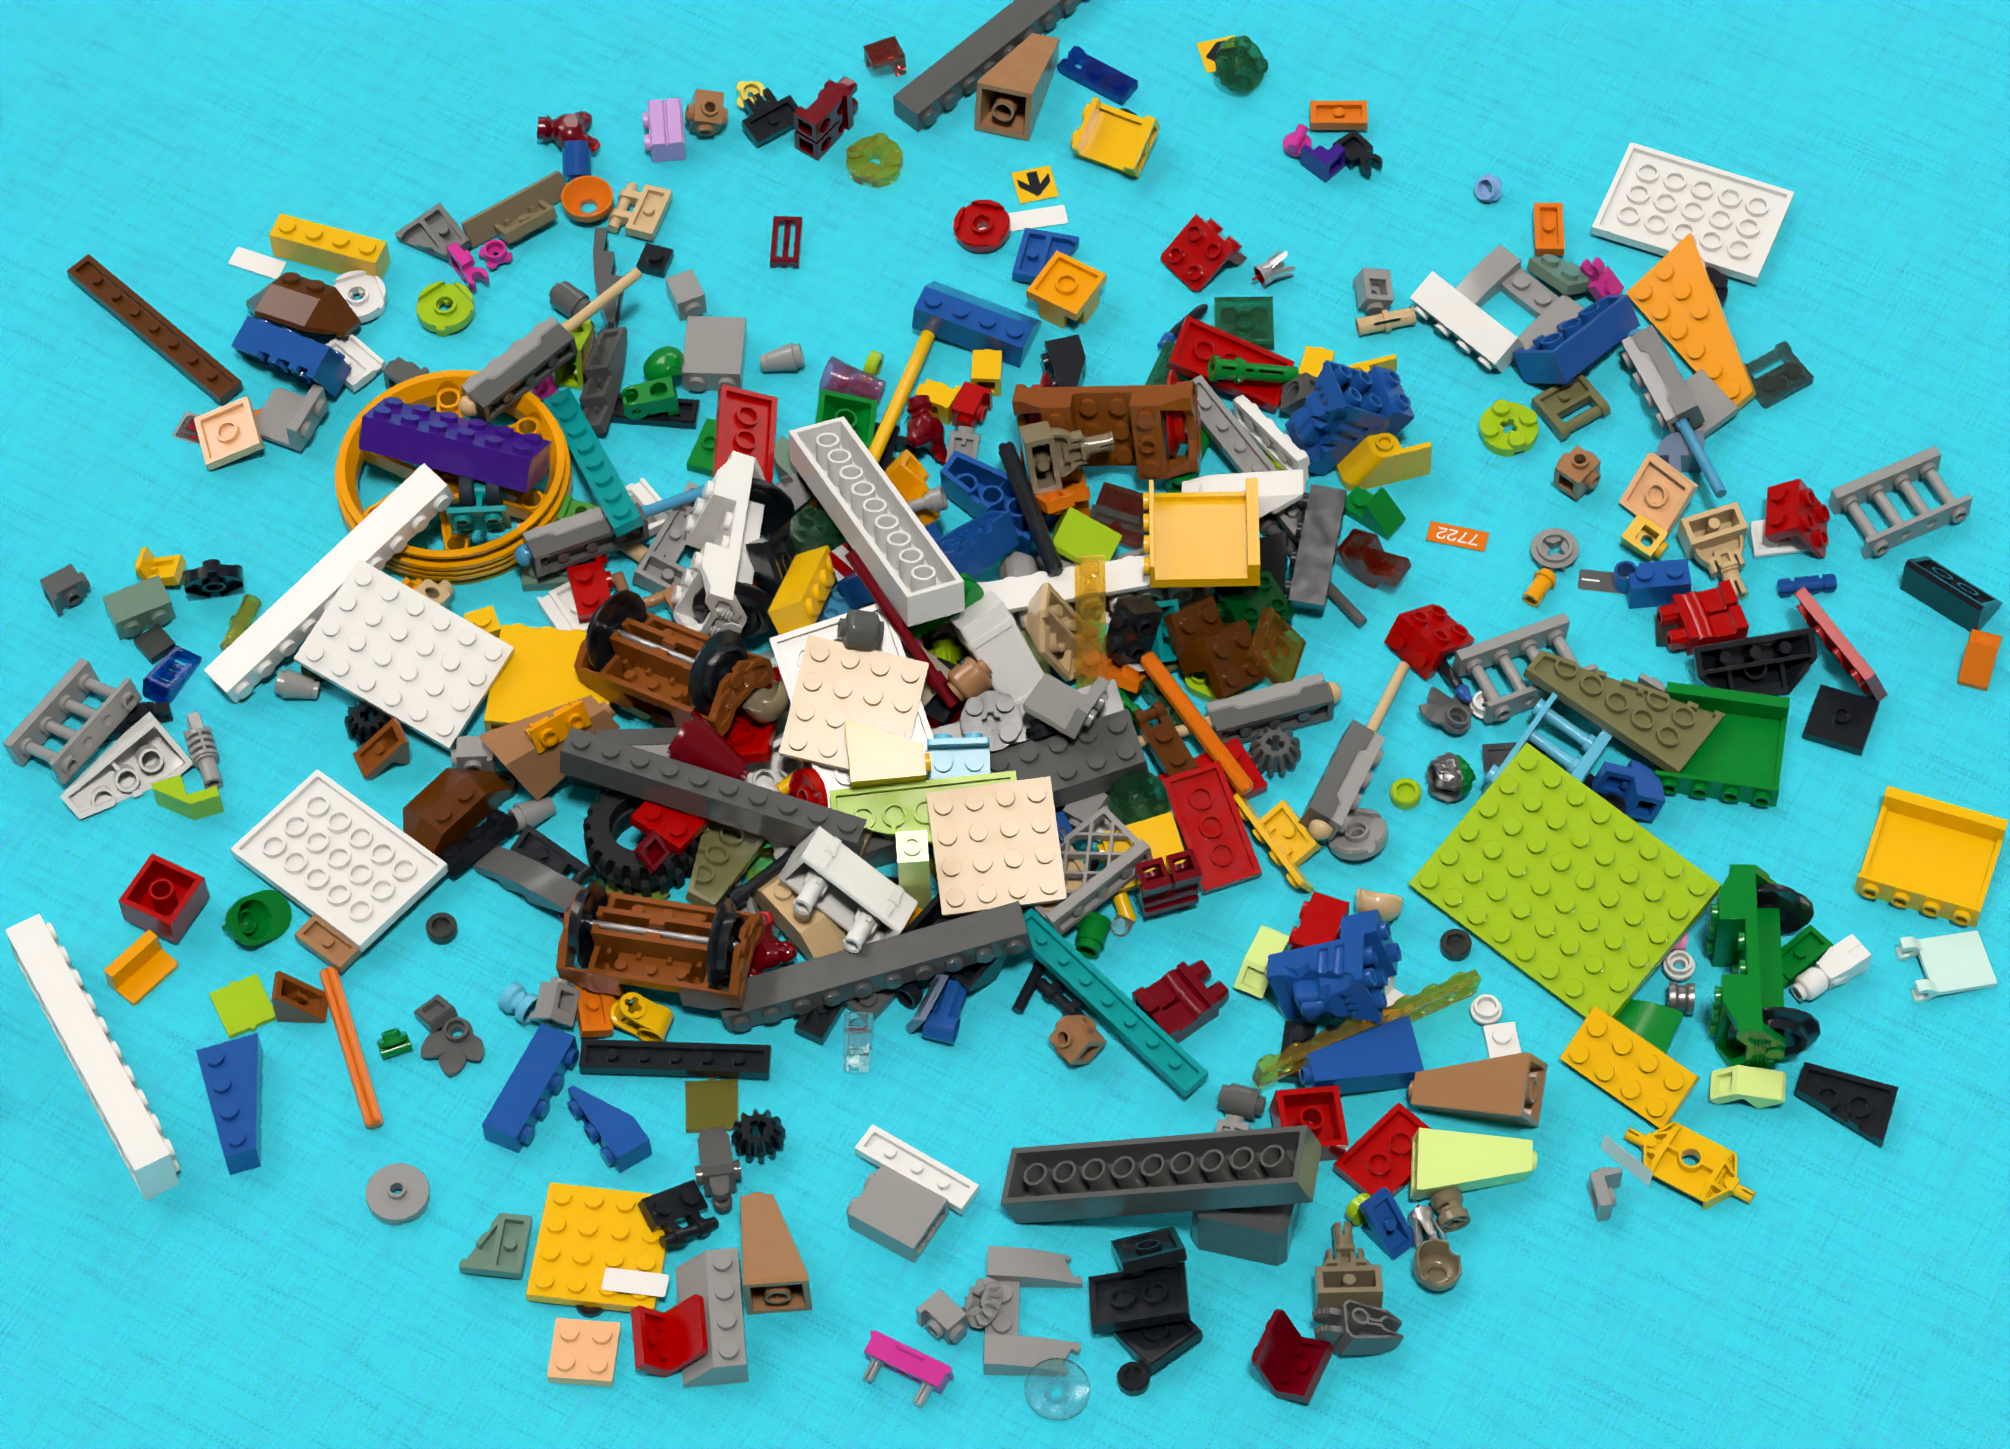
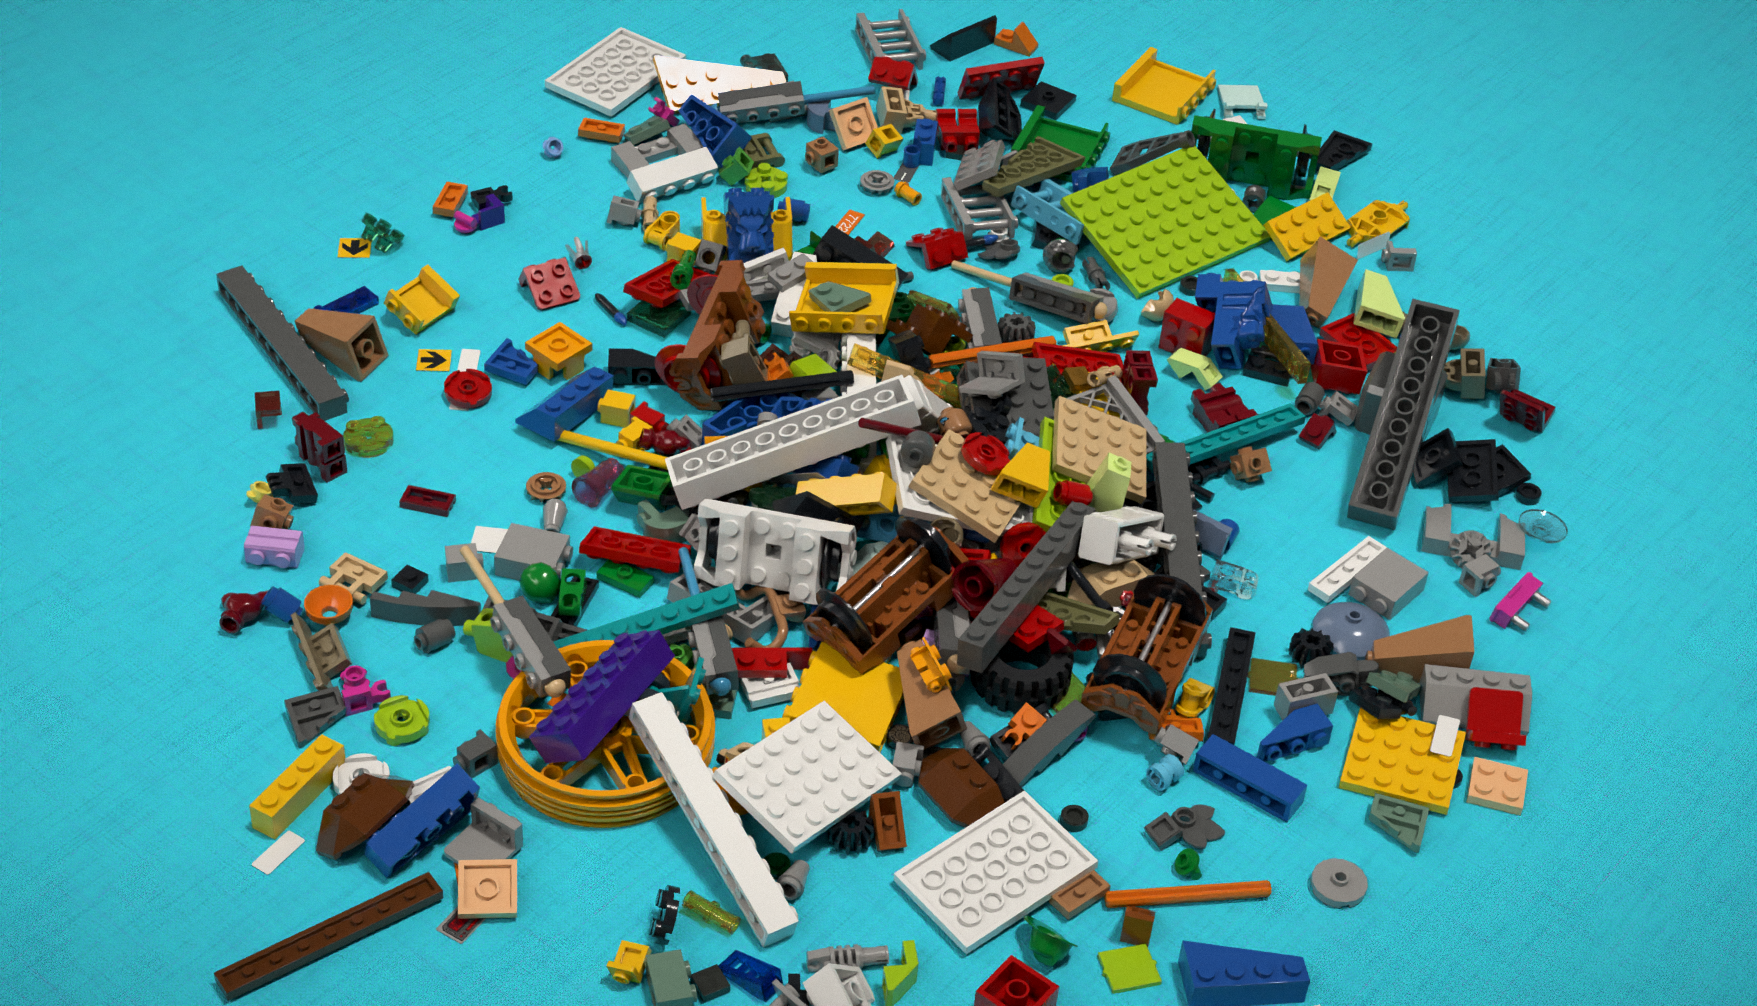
camera: 85 degrees left, 15 degrees down
(548, 851) = (1024, 724): none -> orange plate
(666, 1134) = (1306, 692): none -> light grey brick
(702, 1223) = (1397, 685): none -> sand green wing
(749, 308) = (488, 538): none -> white sticker
(820, 1198) = (1350, 627): none -> sand blue dish
(831, 332) = (545, 480): none -> medium nougat gear
(882, 819) = (1069, 491): none -> red brick
(896, 690) = (985, 453): none -> red plate
(1147, 813) = (1076, 378): none -> pearl gold tile
(1155, 838) = (1102, 374): none -> tan pin
(1180, 1116) = (1317, 430): none -> dark red bracket
(1196, 524) = (838, 298): none -> sand green wing
(1246, 318) = (618, 272): clear green plate -> none
(1270, 479) = (789, 273): none -> light grey plate
(1350, 341) = (662, 229): none -> yellow piece
(1431, 827) = (1095, 273): none -> dark grey pin
(1447, 468) = (799, 209): none -> blue brick
(1509, 384) = (736, 167): none -> bright green brick
(1603, 647) = (979, 164): none -> light grey plate
(1719, 843) = (1130, 157): none -> dark grey plate

